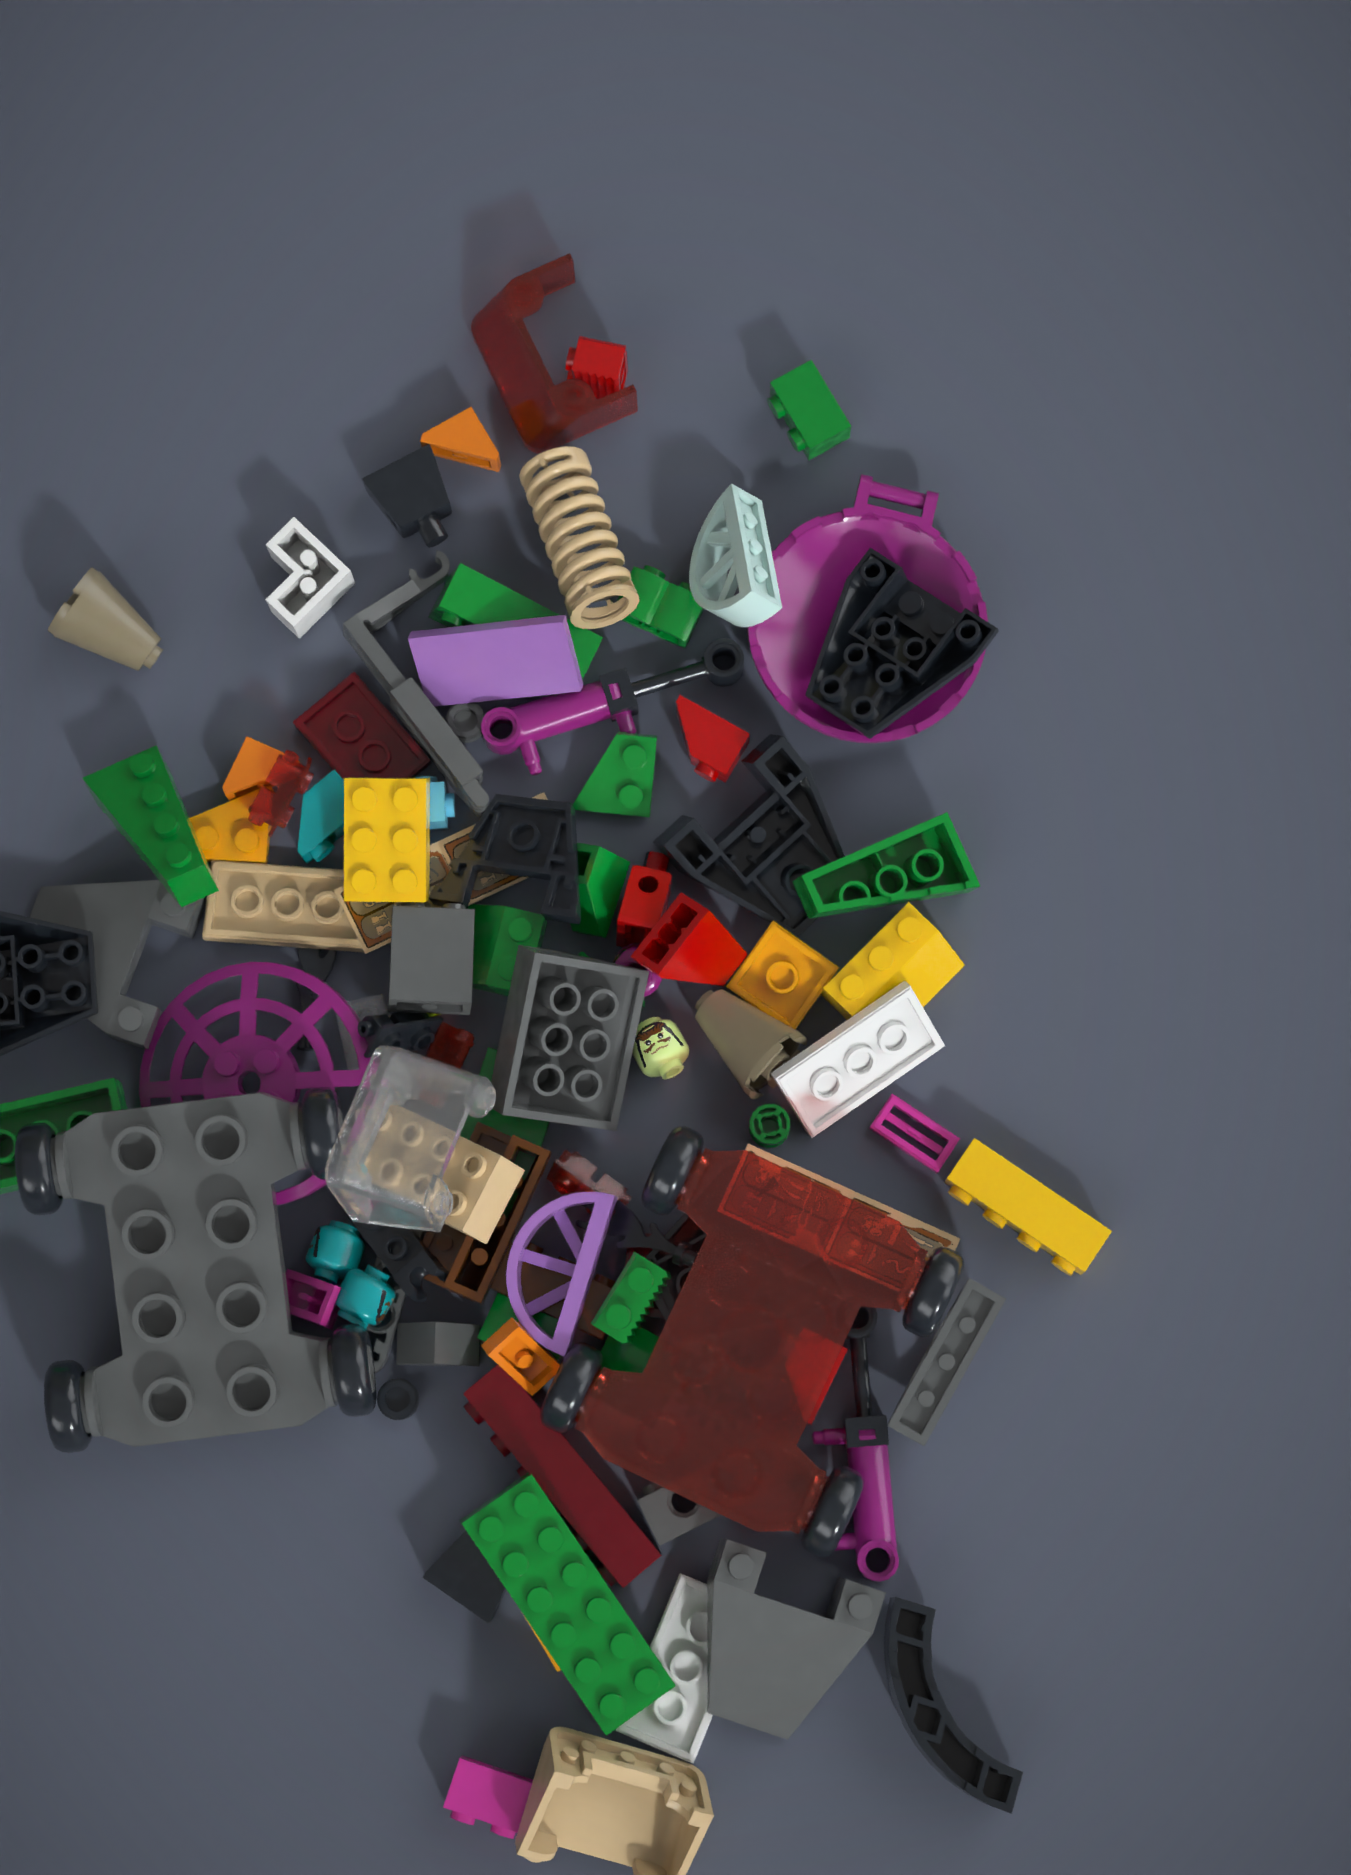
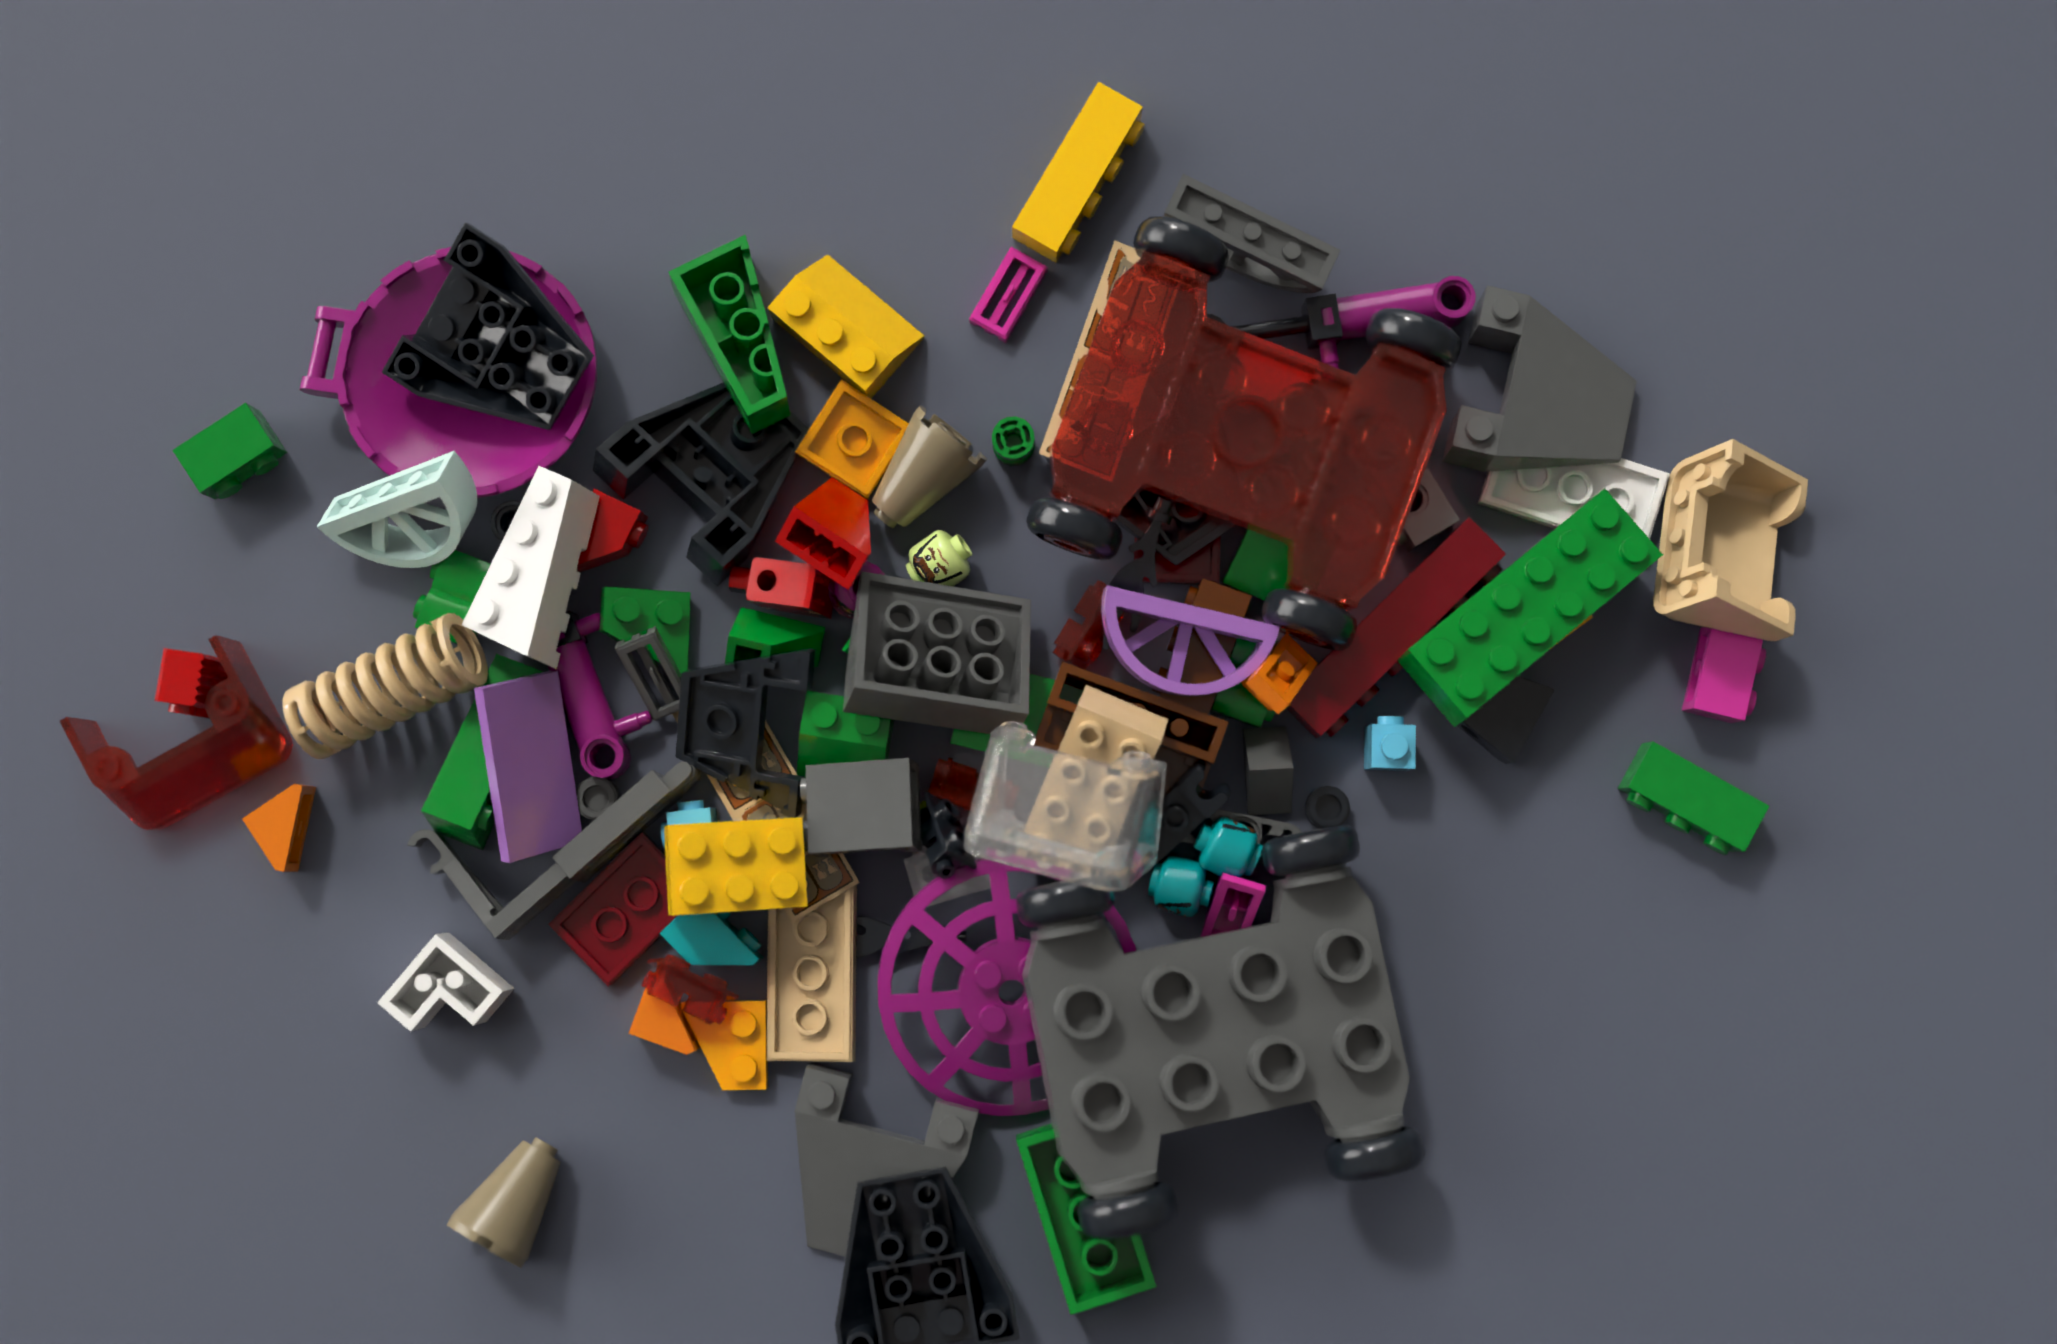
camera: 95 degrees left, 5 degrees up
(151, 815) = (724, 1129): green wedge -> none
(373, 1752) = (1692, 799): none -> green brick
(412, 495) = (347, 876): black torso -> none
(450, 1461) = (1390, 745): none -> medium azure brick
(600, 767) = (640, 643): none -> dark grey tile
(631, 1298) = (1212, 563): green brick -> none
(674, 675) = (536, 568): none -> white wedge
(858, 1059) = (936, 353): white tile -> none
(926, 1715) = (1570, 257): black brick -> none

